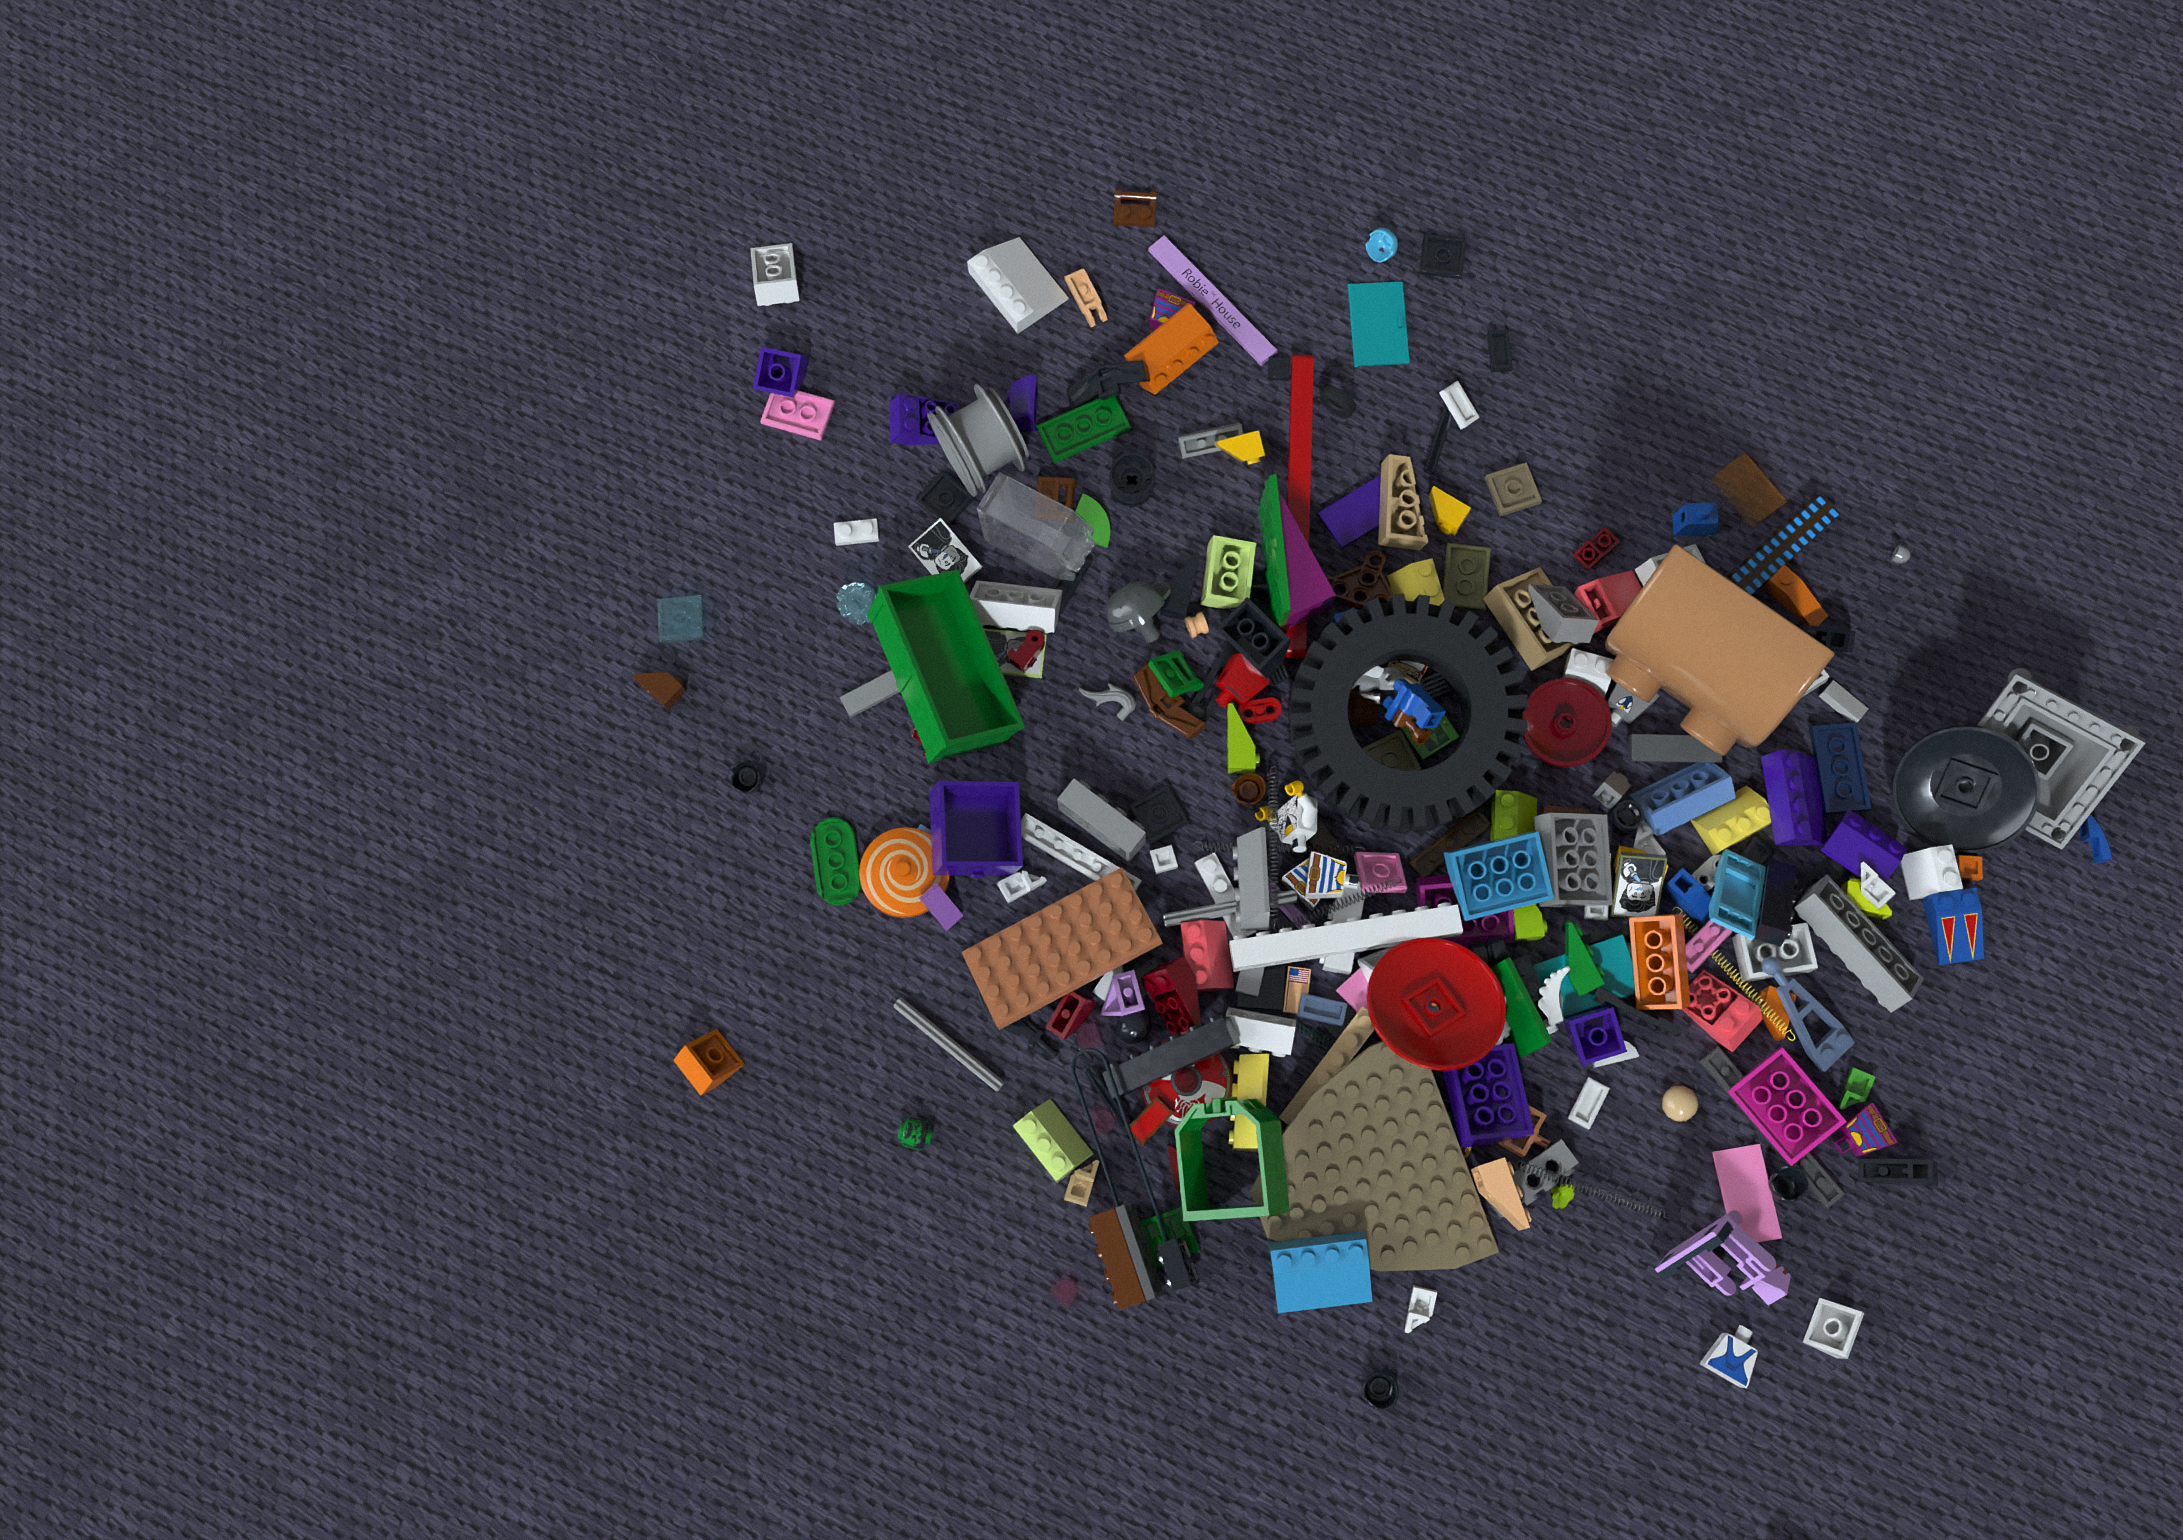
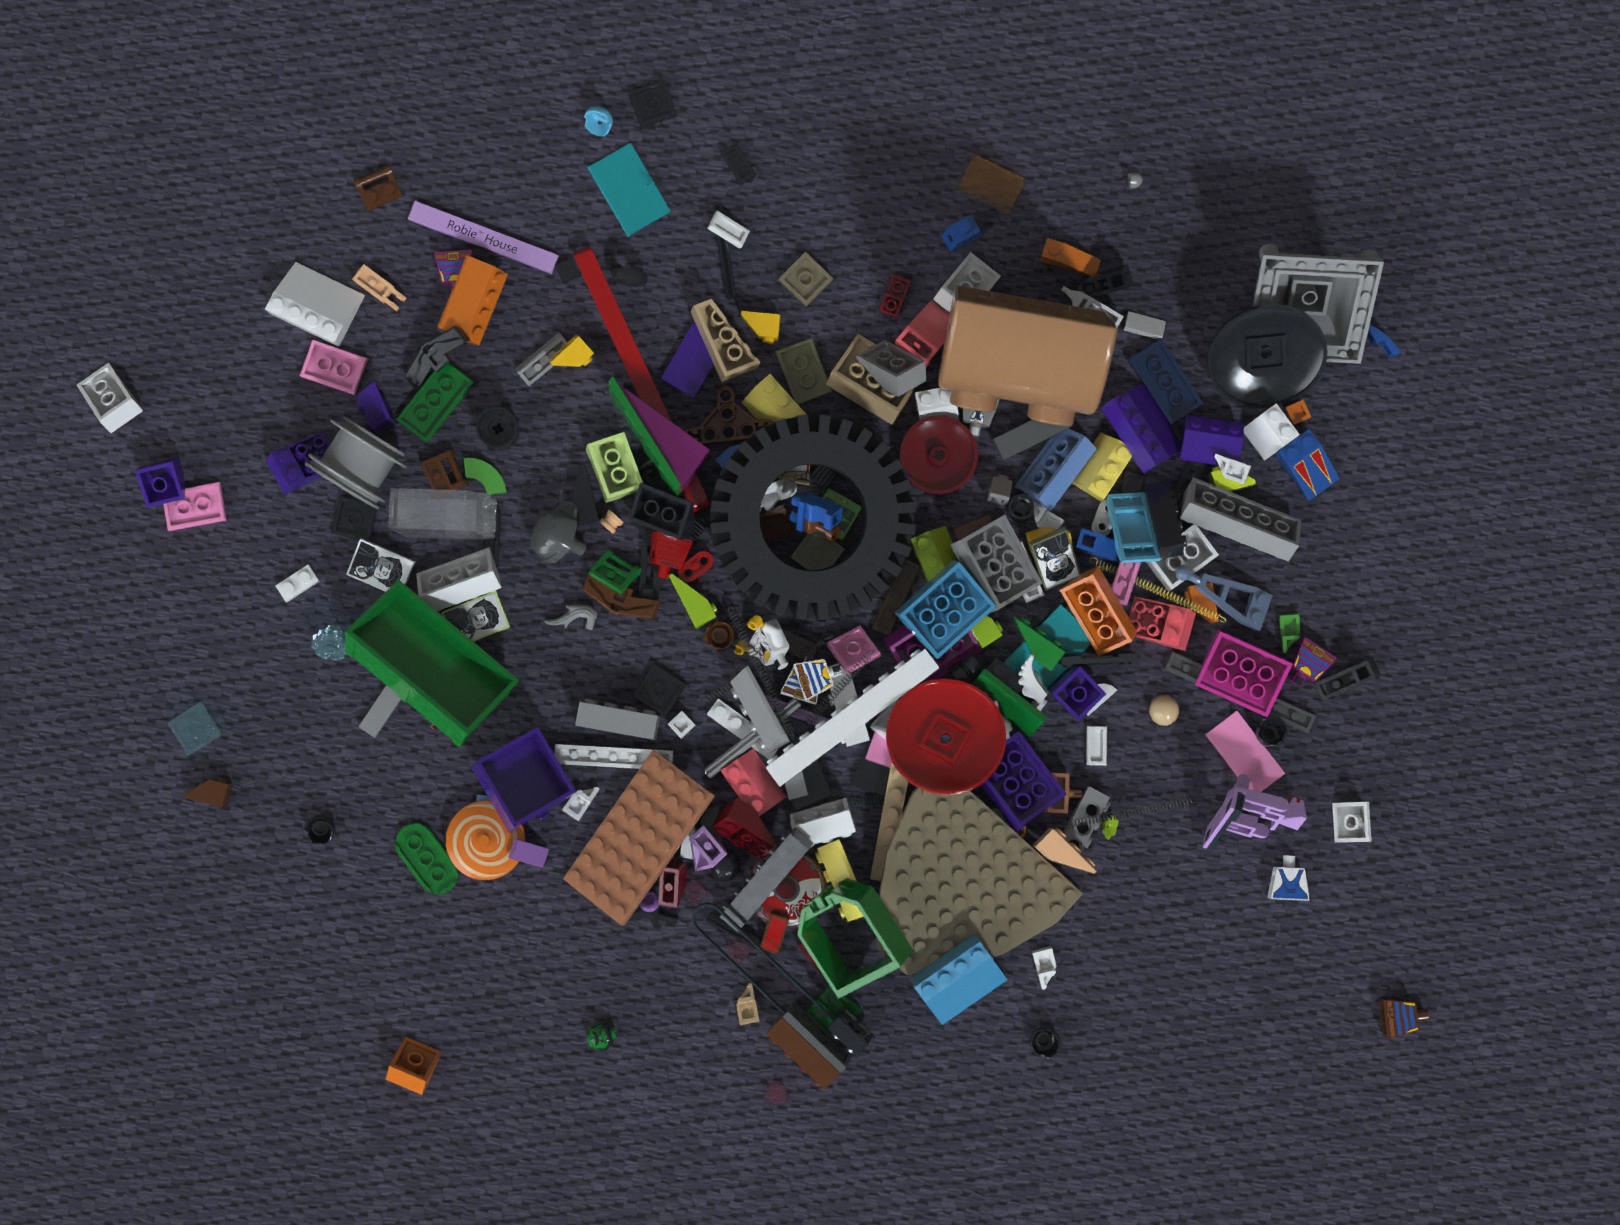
camera: 30 degrees left, 10 degrees up
(949, 1044) = (590, 954): light grey axle -> none
(1002, 349) = (333, 367): none -> bright pink tile
(1028, 651) = (489, 613): dark red leg -> none
(1037, 1021) = (650, 902): none -> medium lavender tile
(1053, 1140) = (708, 986): yellowish green slope -> none
(1296, 984) = (835, 773): light nougat tile -> none
(1322, 1009) = (862, 779): sand blue tile -> none
(1785, 545) = (1040, 222): brick -> none

